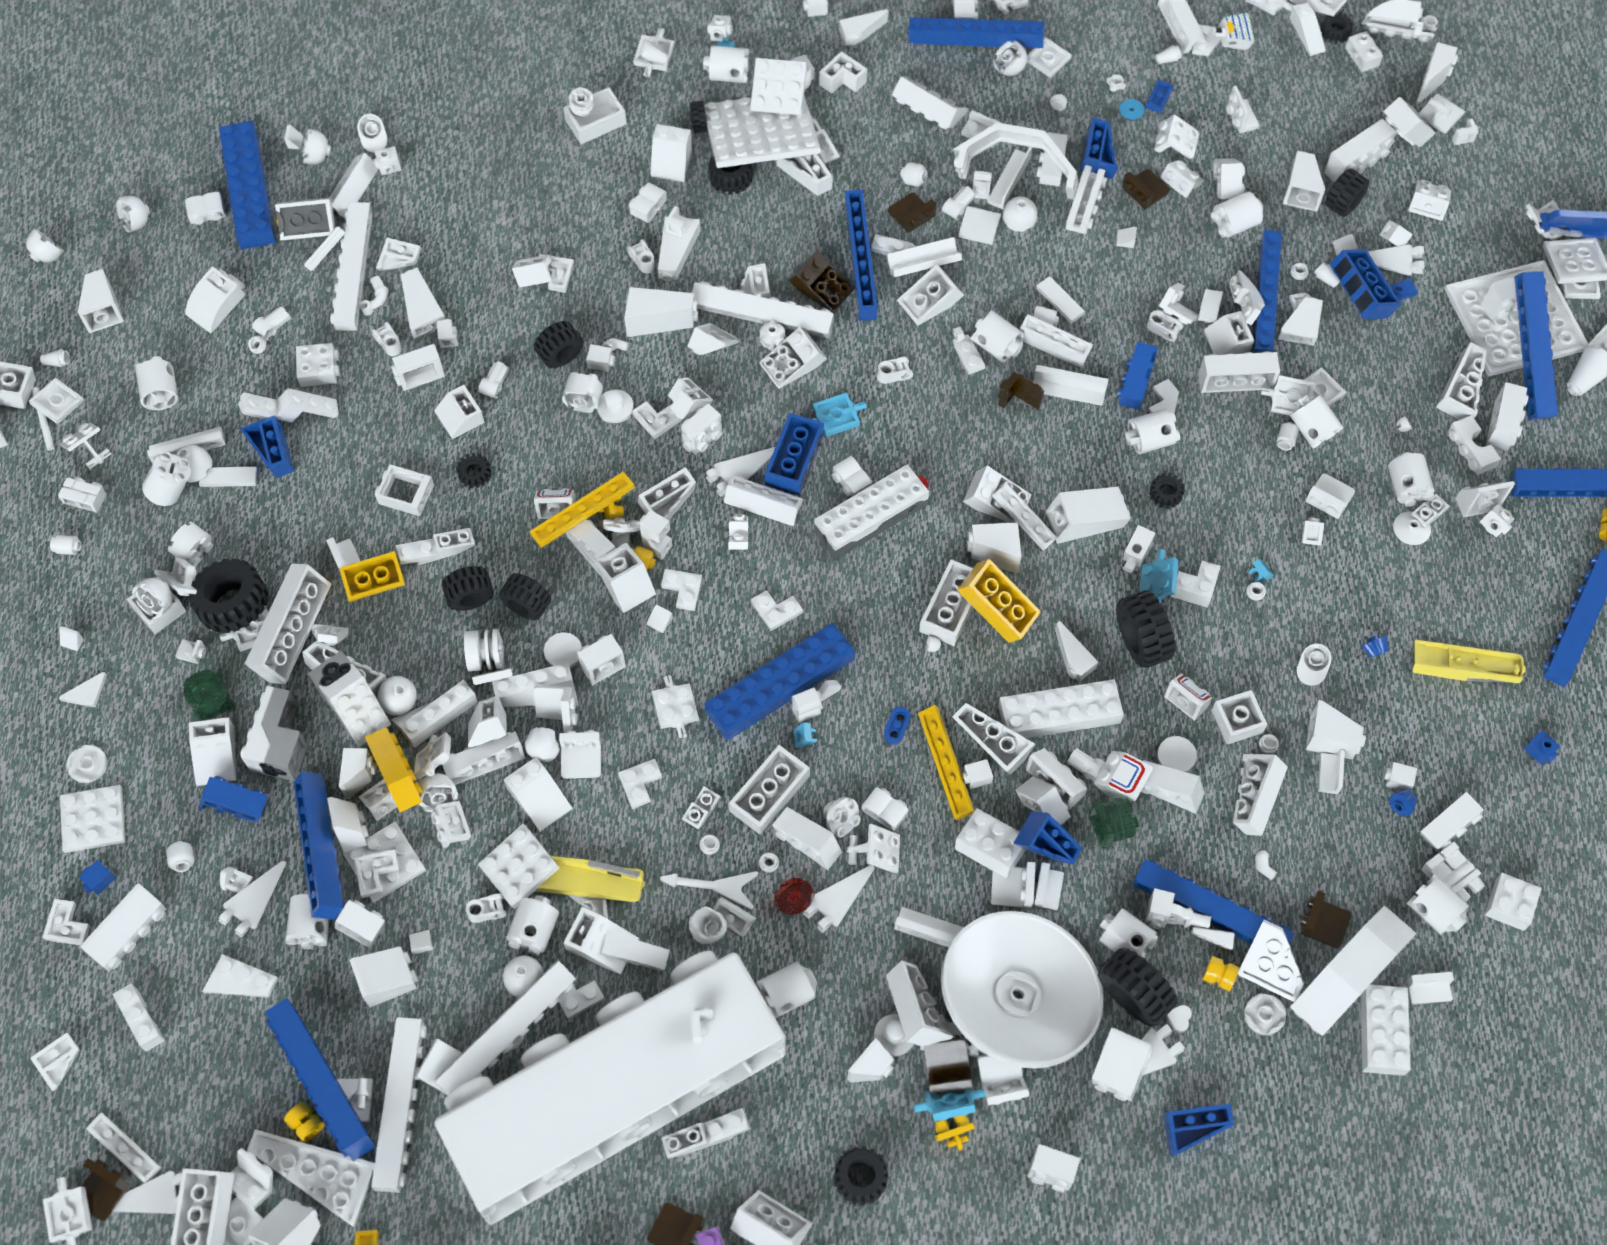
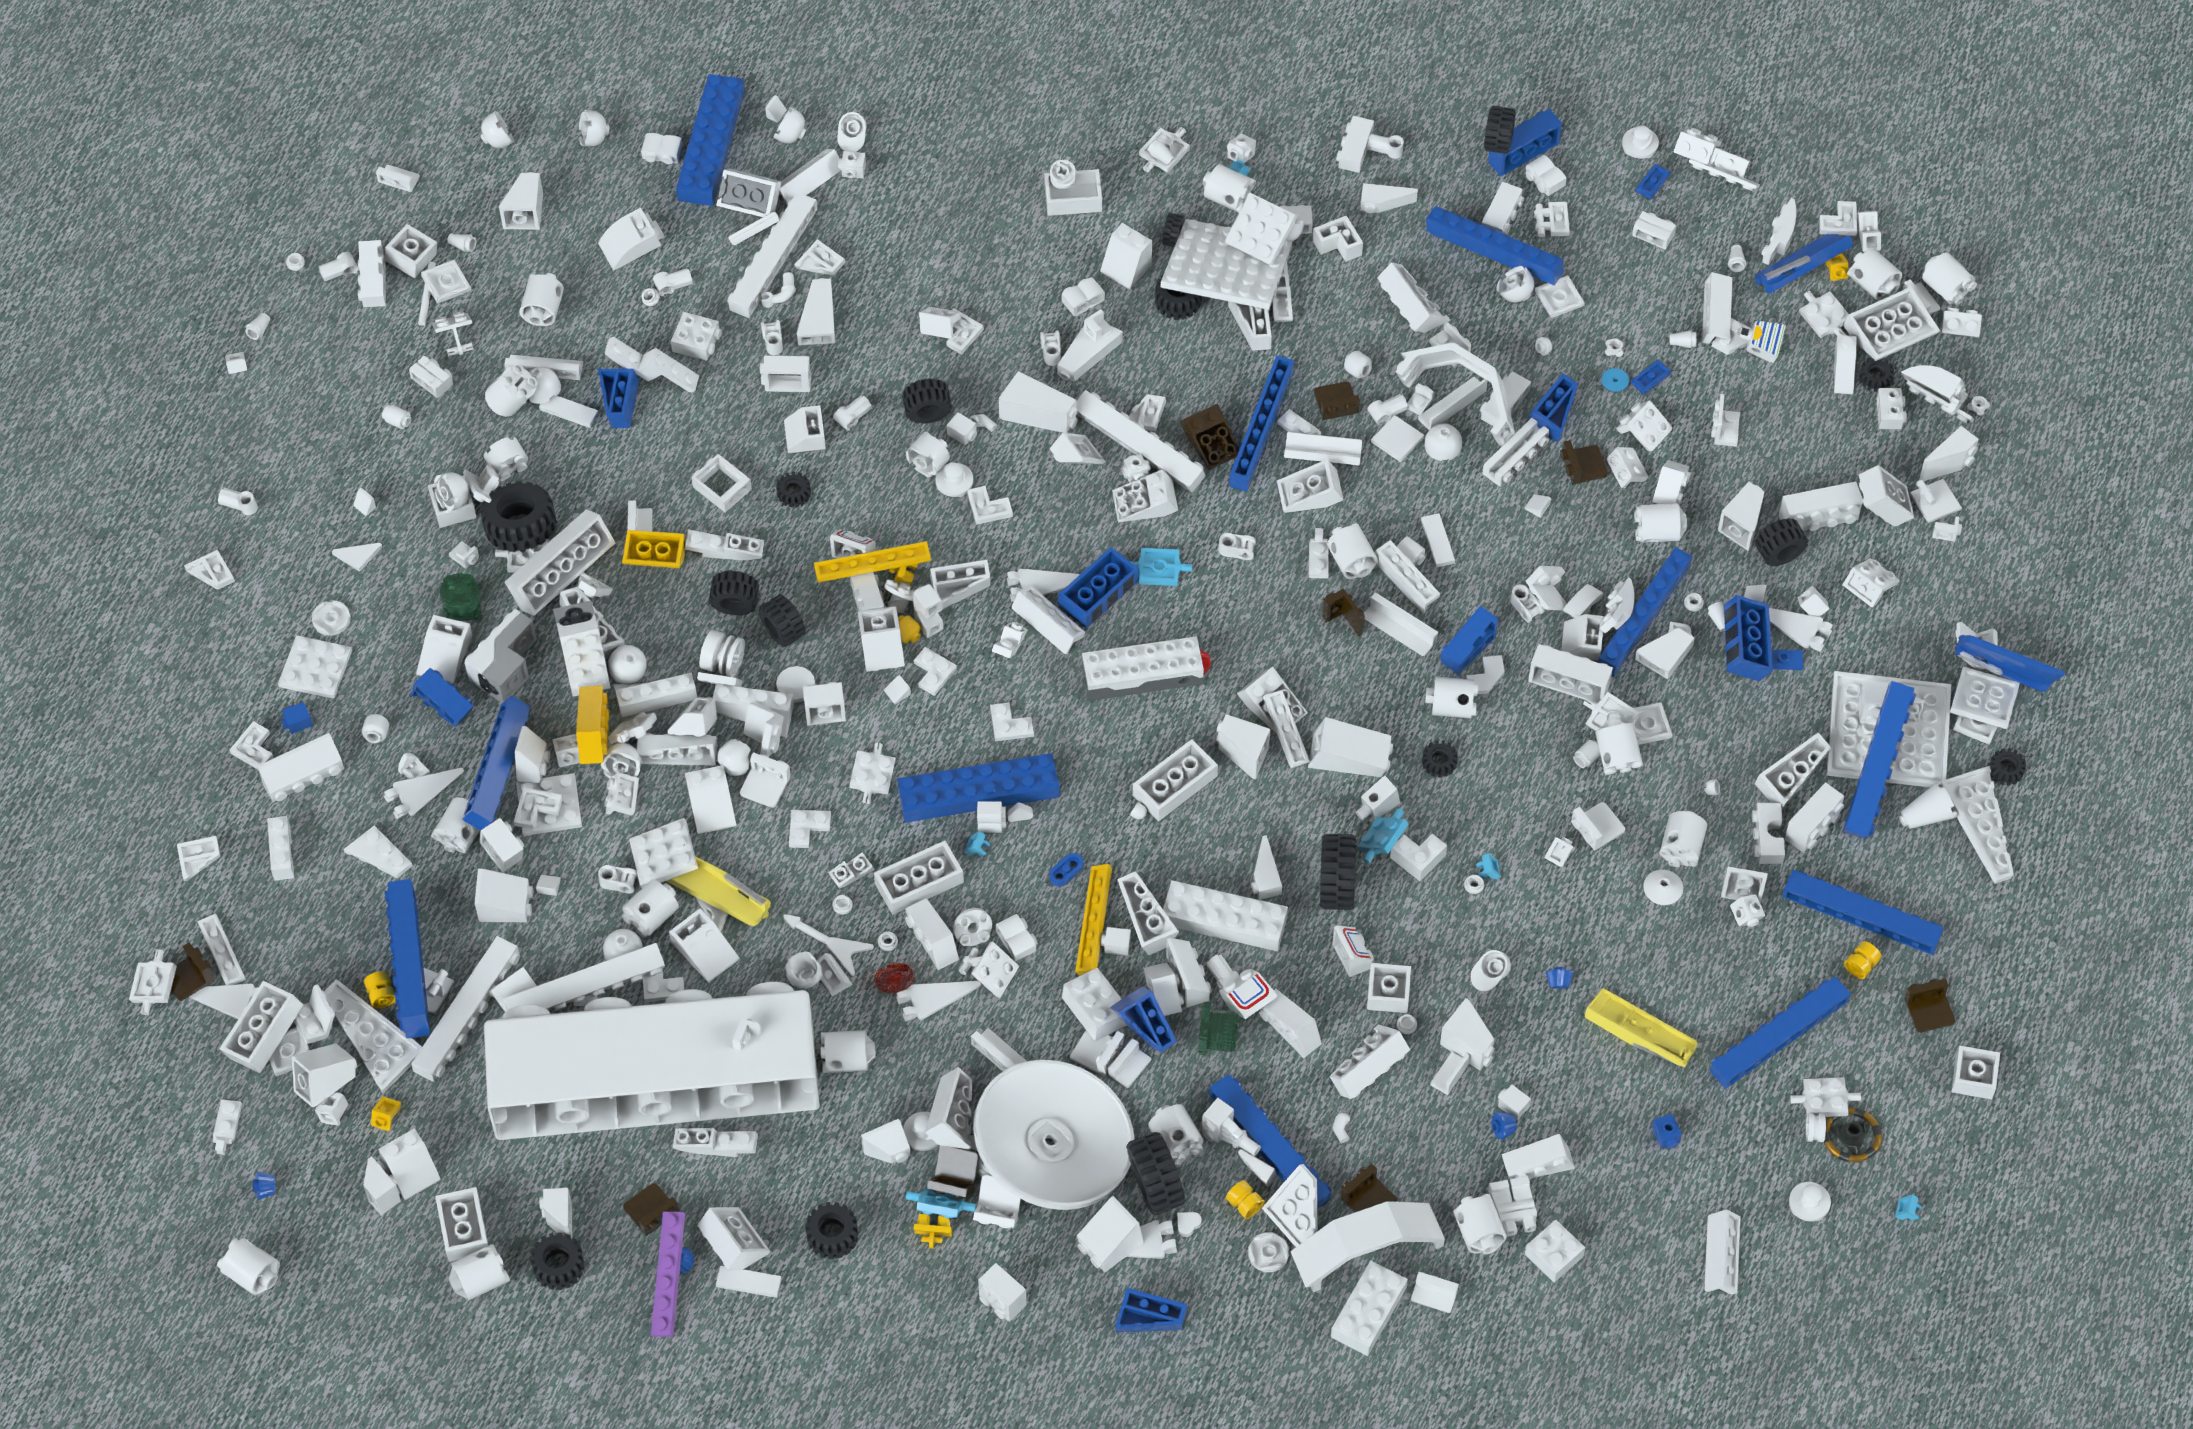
camera: 25 degrees right, 5 degrees down
(356, 771) = (558, 715): white slope -> none
(447, 333) = (829, 352): white brick -> none
(635, 952) = (728, 966): white slope -> none
(687, 398) = (1024, 499): white brick -> none
(701, 429) = (1021, 531): white brick -> none
(851, 477) = (1141, 627): white brick -> none
(999, 601) = (1215, 793): yellow brick -> none
(1177, 753) = (1314, 998): white tile -> none
(1430, 510) = (1689, 878): white slope -> none

